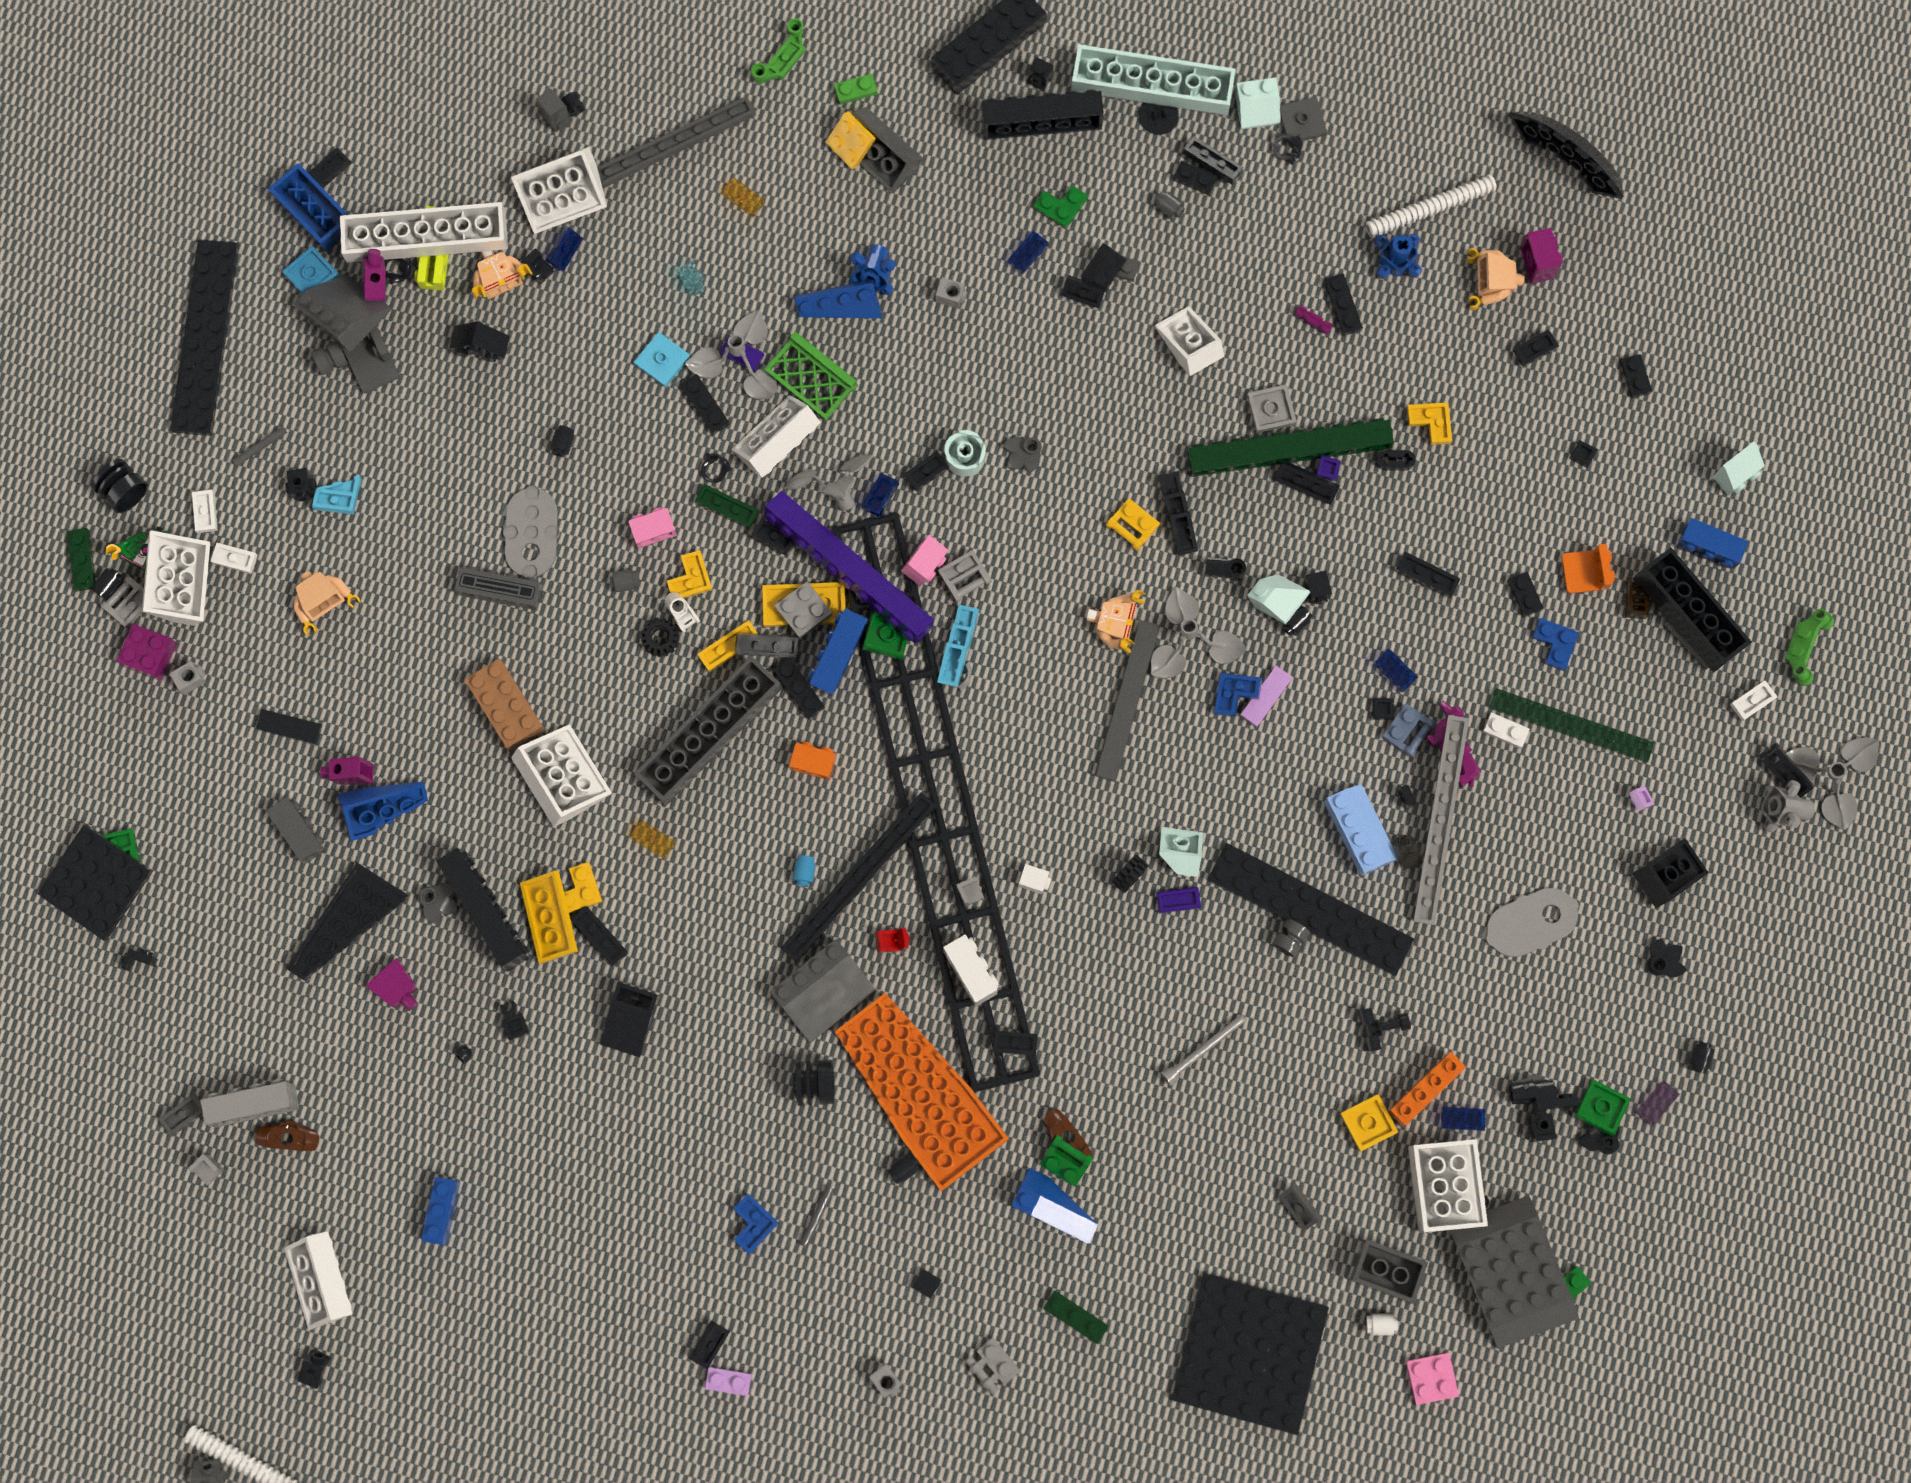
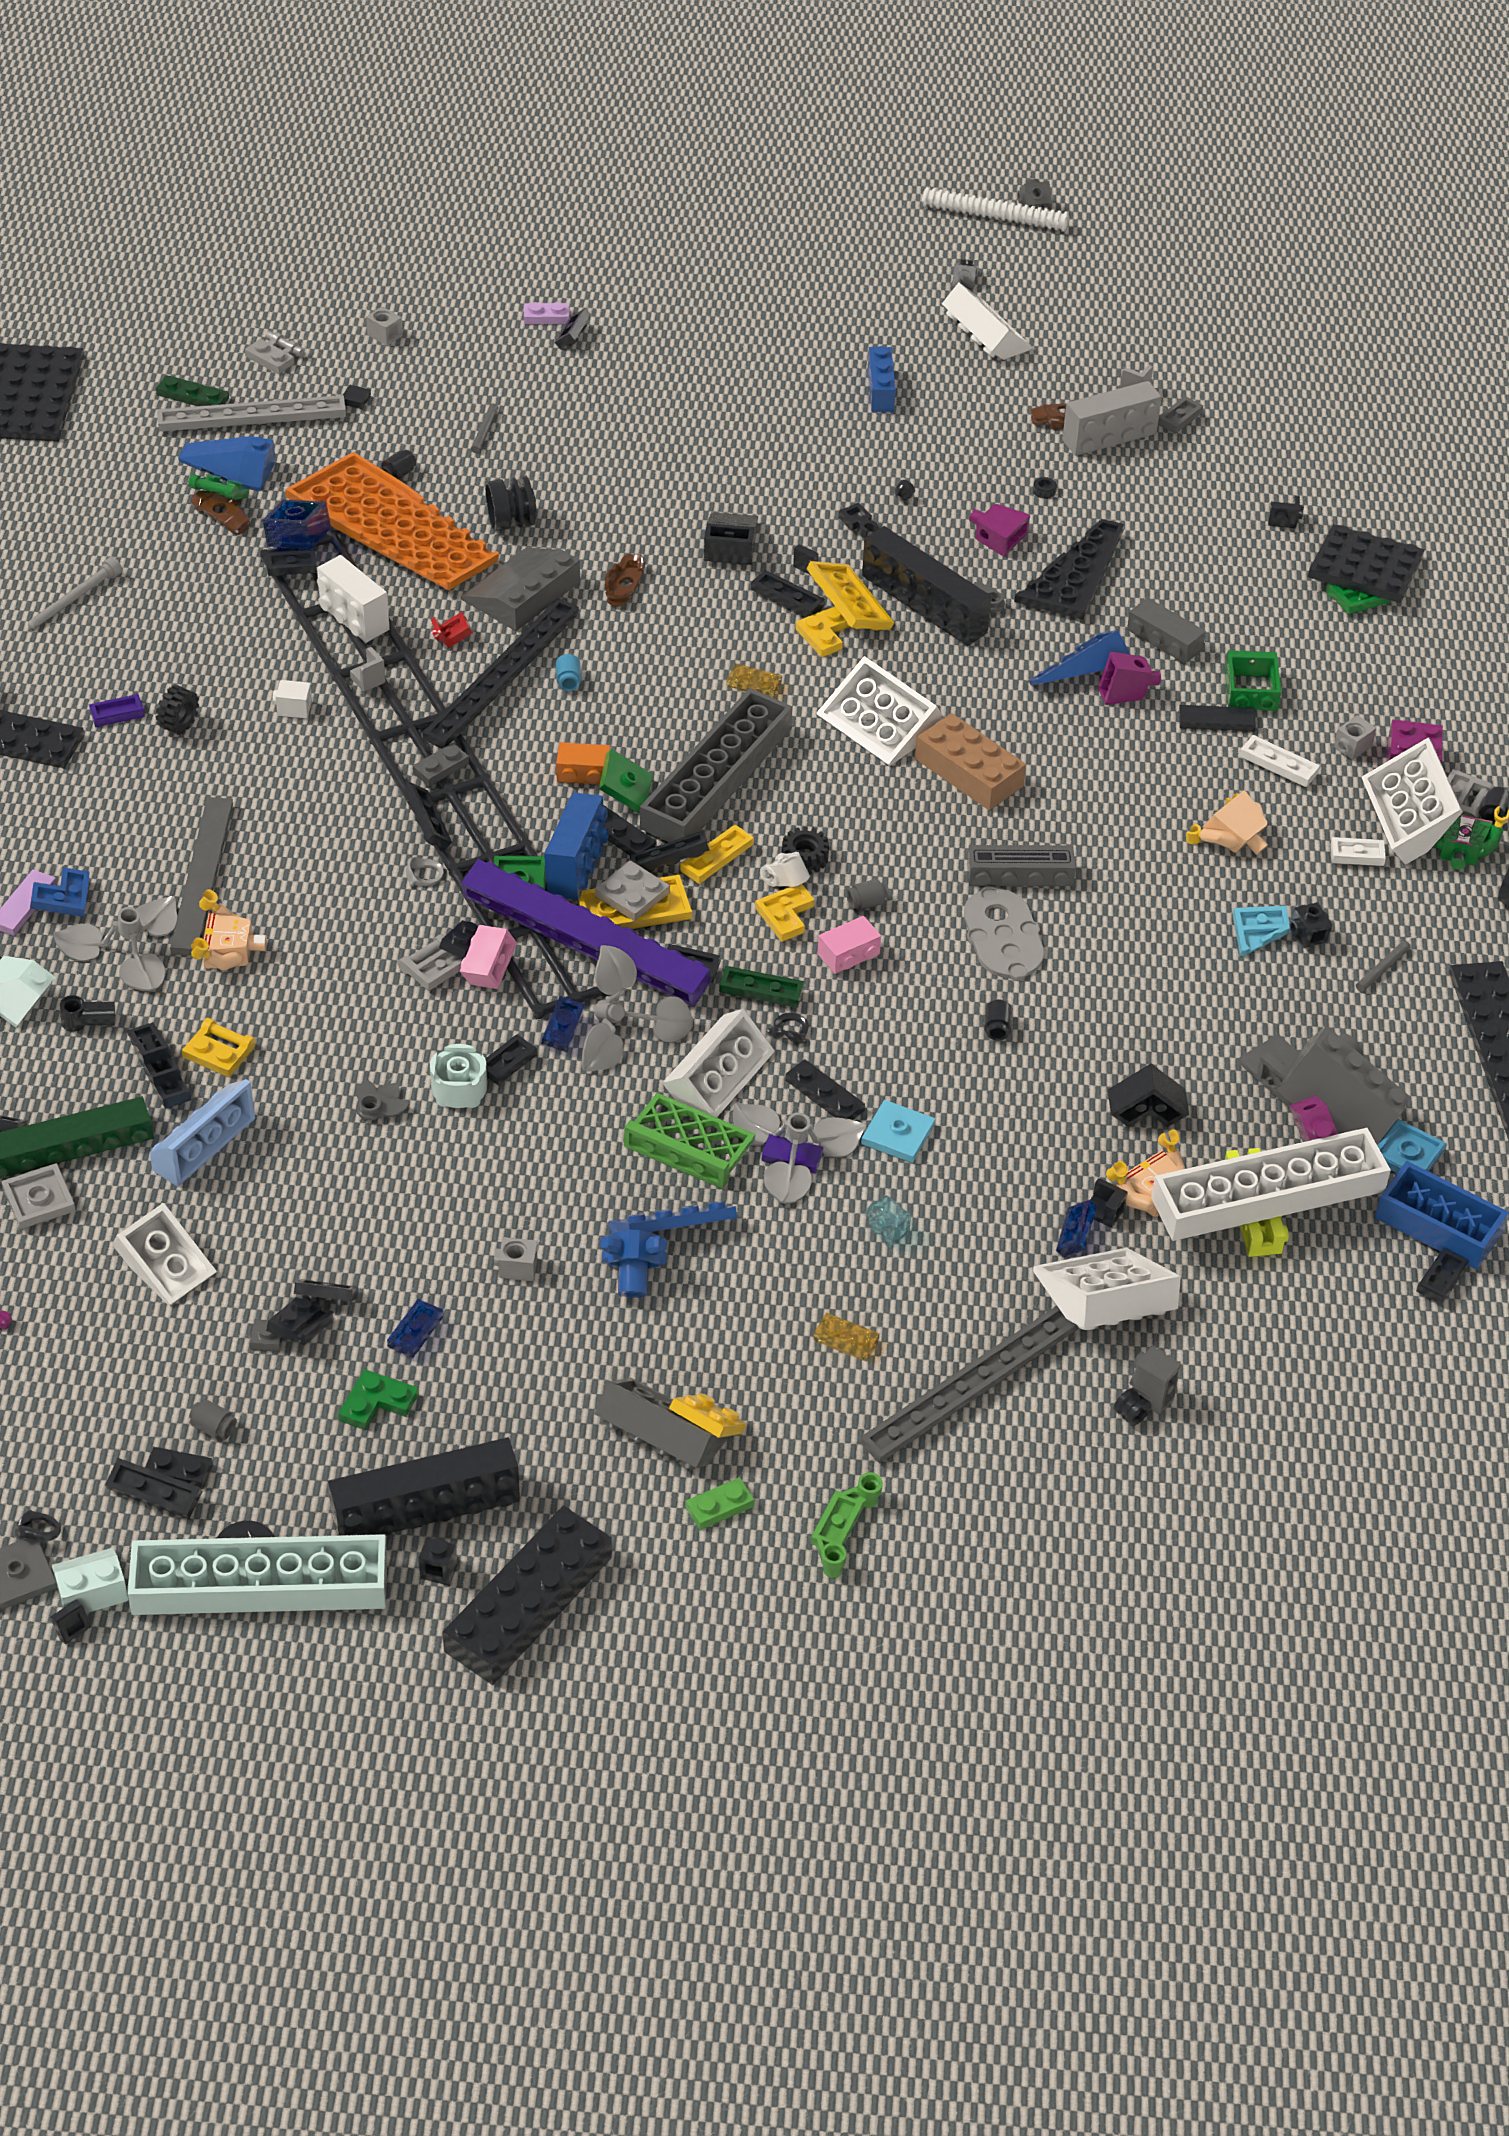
camera: 165 degrees right, 30 degrees down
(204, 511) = (1416, 889): white plate -> none
(224, 767) = (1264, 665): none -> green window
(257, 665) = (1279, 761): none -> white plate
(337, 1041) = (1044, 487): none -> black tile
(575, 977) = (803, 556): none -> black tile
(741, 967) = (630, 568): none -> reddish brown piece
(759, 1223) = (547, 412): blue plate -> none
(783, 729) = (625, 780): none -> green plate
(926, 778) = (440, 764): none -> dark grey plate
(940, 587) = (459, 939): none -> black plate
(946, 716) = (427, 816): none -> black plate
(958, 646) = (427, 892): medium azure slope -> none
(1005, 1082) = (296, 524): none -> clear blue brick
(1025, 1271) = (251, 413): none -> light grey plate
(1153, 437) = (204, 1133): none -> light blue slope
(1181, 850) = (118, 745): light aqua slope -> none
(1272, 72) = (70, 1621): none -> black tile

